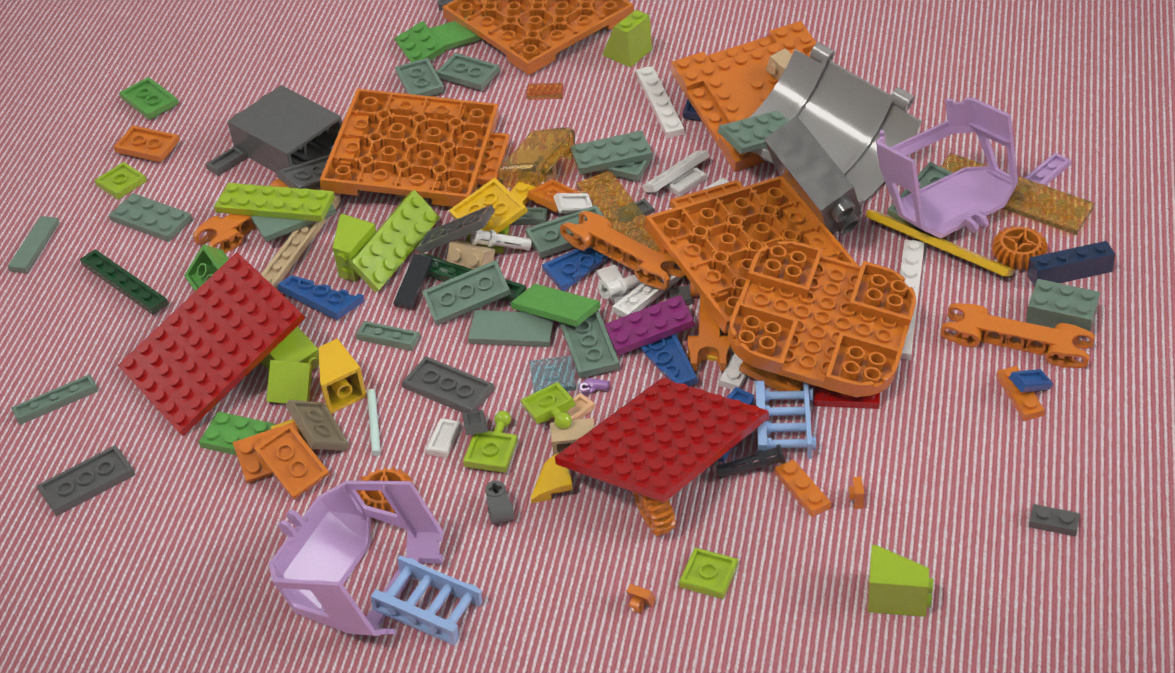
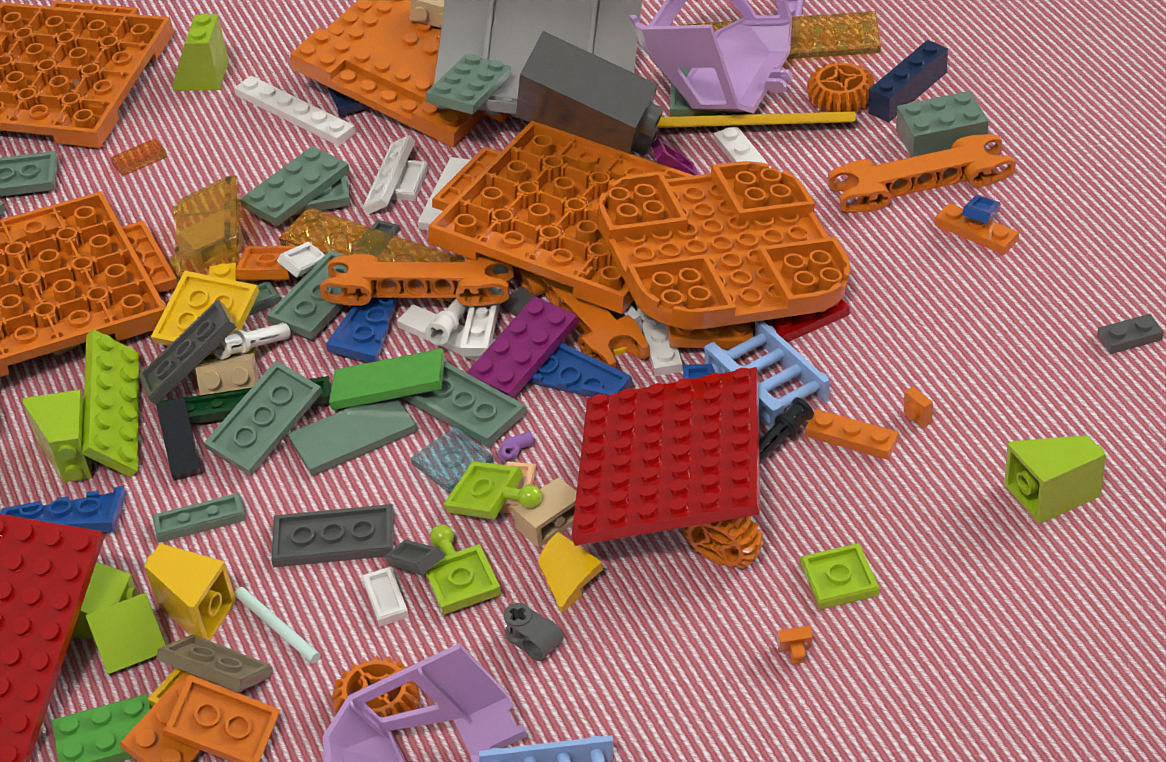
camera: 35 degrees left, 0 degrees up
(854, 245) = (672, 158): none -> magenta plate

